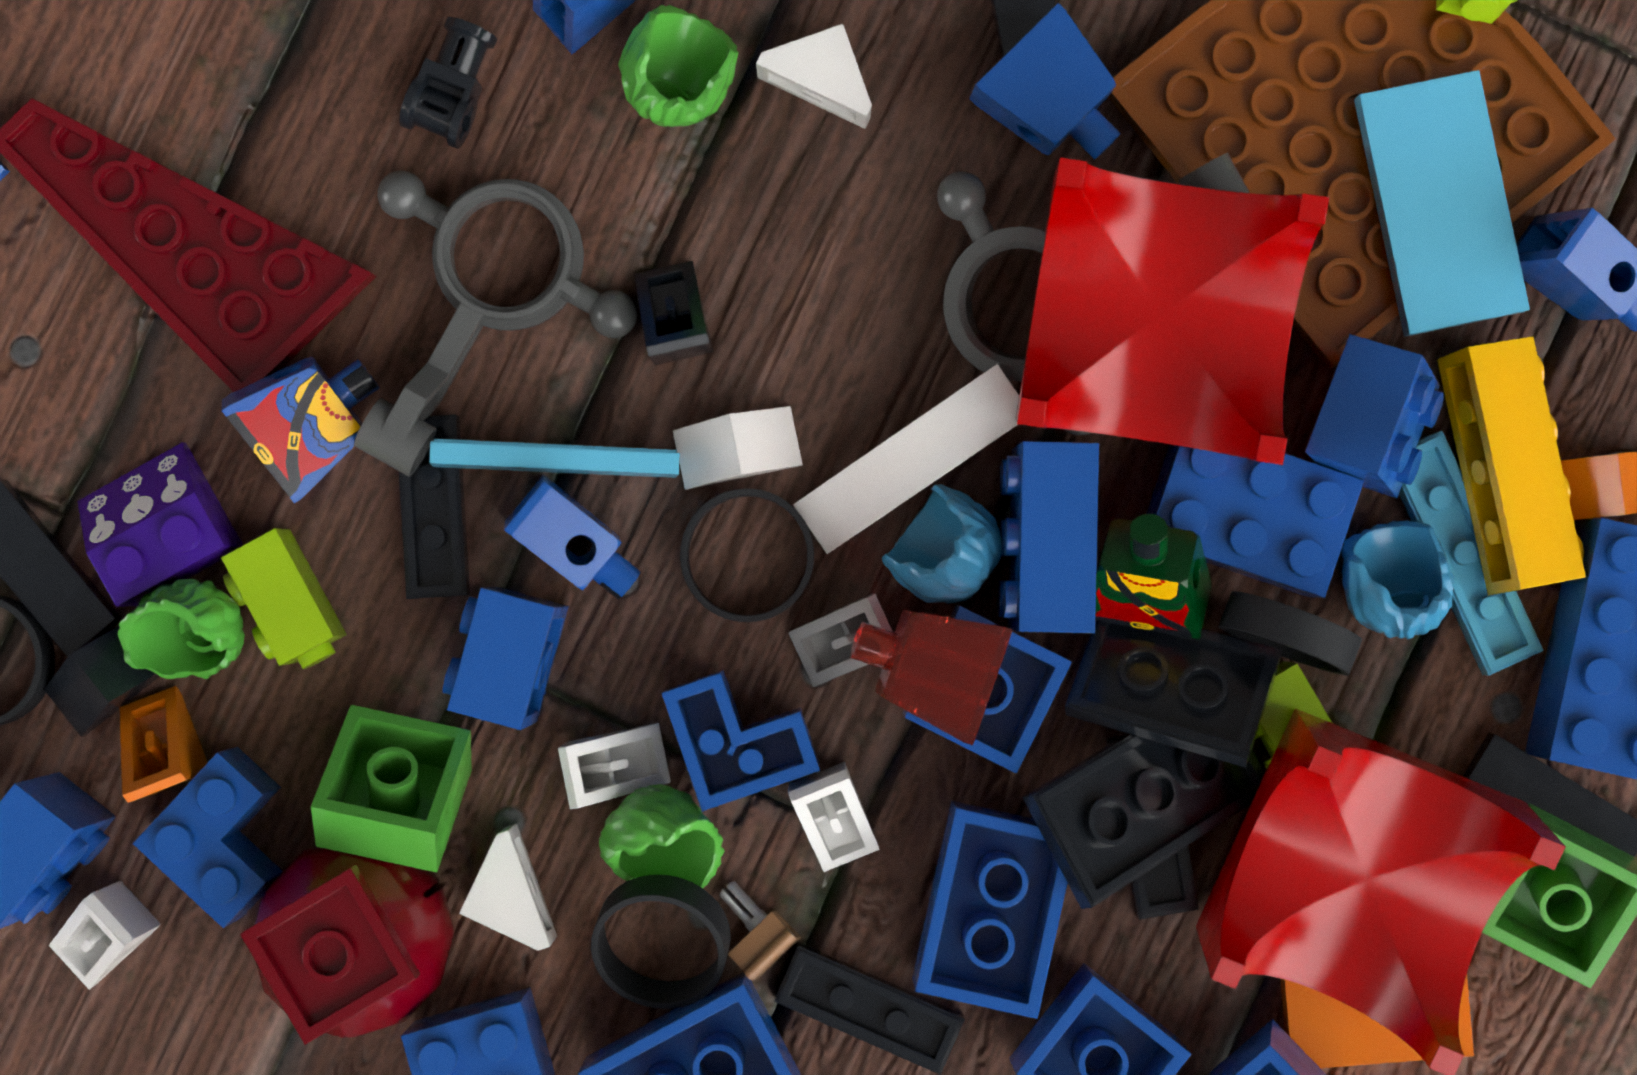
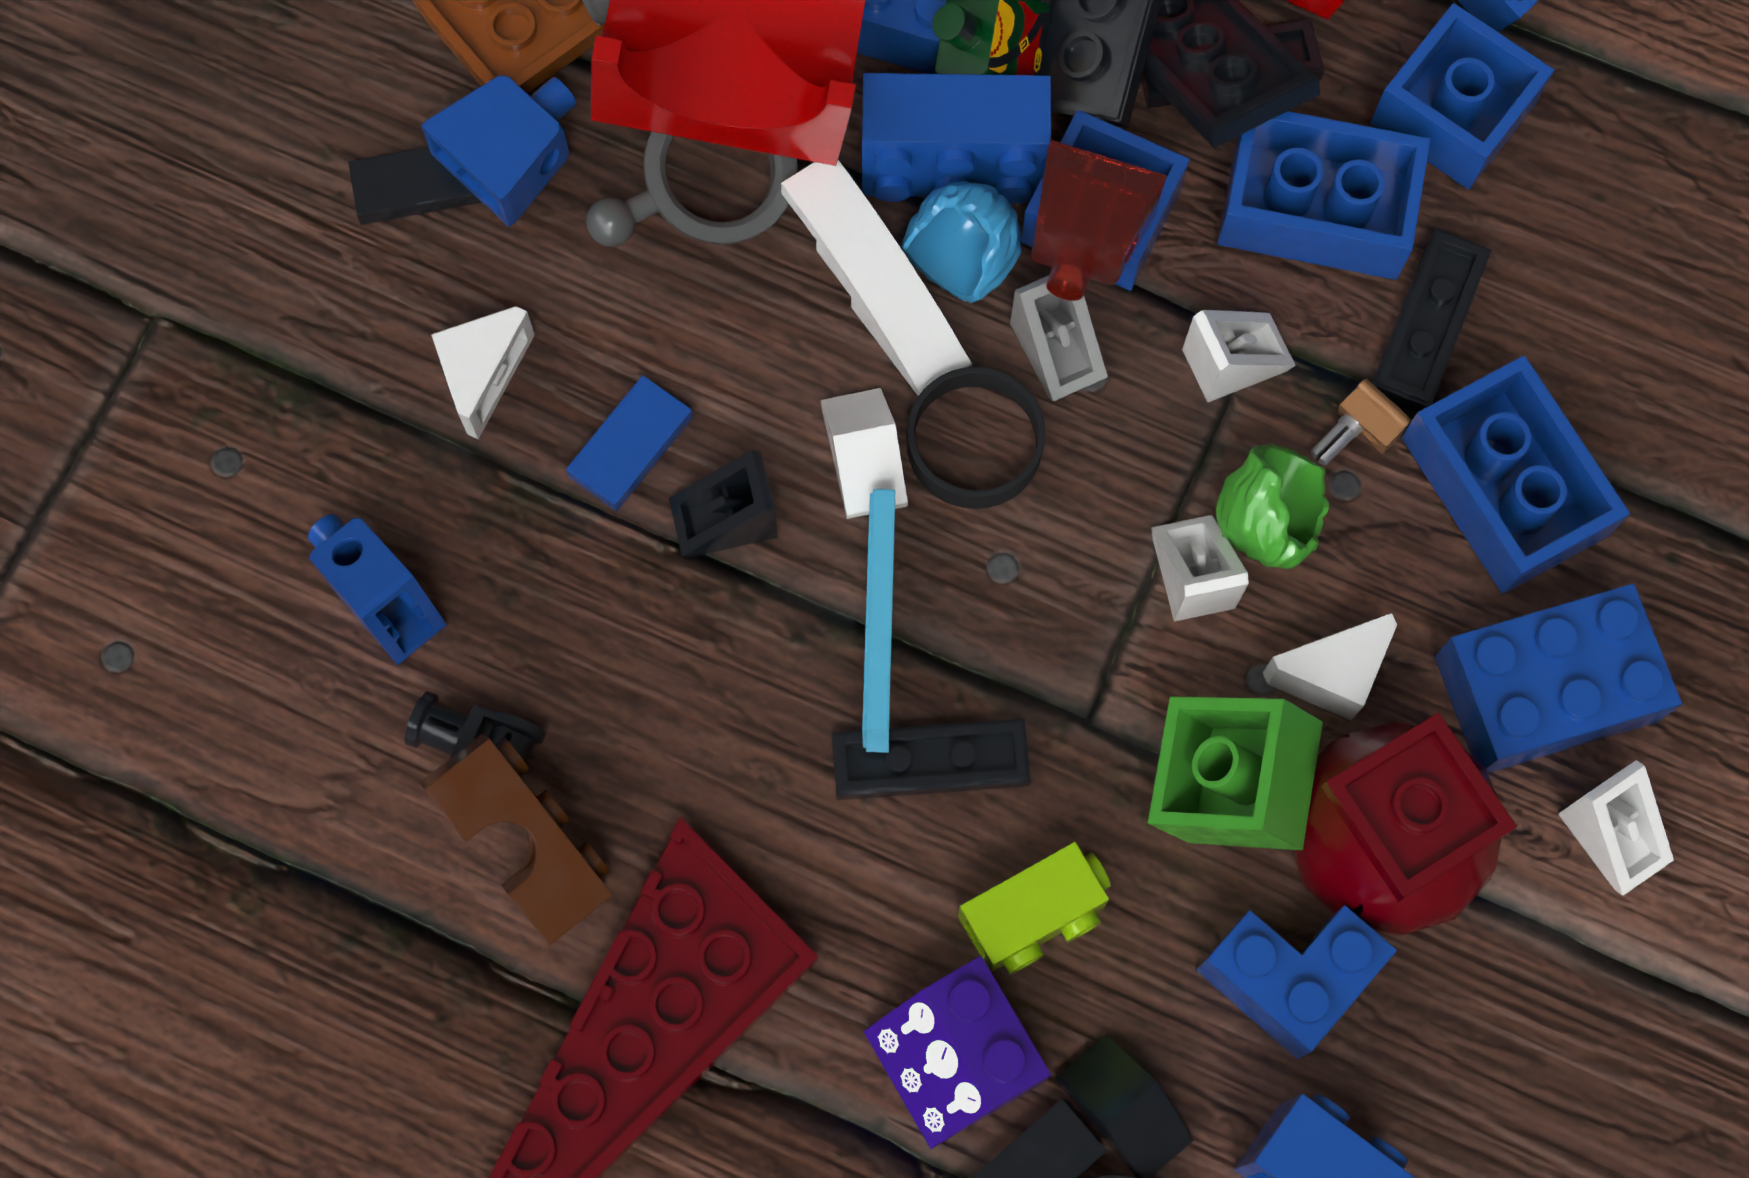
camera: 90 degrees left, 15 degrees down
(103, 932) = (1414, 1107): white slope -> none
(158, 745) = (1200, 1042): orange slope -> none
(183, 630) = (1072, 1006): bright green hair -> none
(300, 420) = (841, 885): torso -> none
(380, 92) = (557, 880): none -> reddish brown arch
(398, 431) = (850, 771): dark grey piece -> none
(505, 657) = (1091, 658): blue brick -> none
(550, 519) = (959, 606): torso -> none
(650, 991) = (1426, 491): black tyre -> none
(677, 67) = (470, 500): bright green hair -> none
(730, 758) = (1182, 439): blue brick -> none
(746, 221) = (629, 443): none -> blue tile

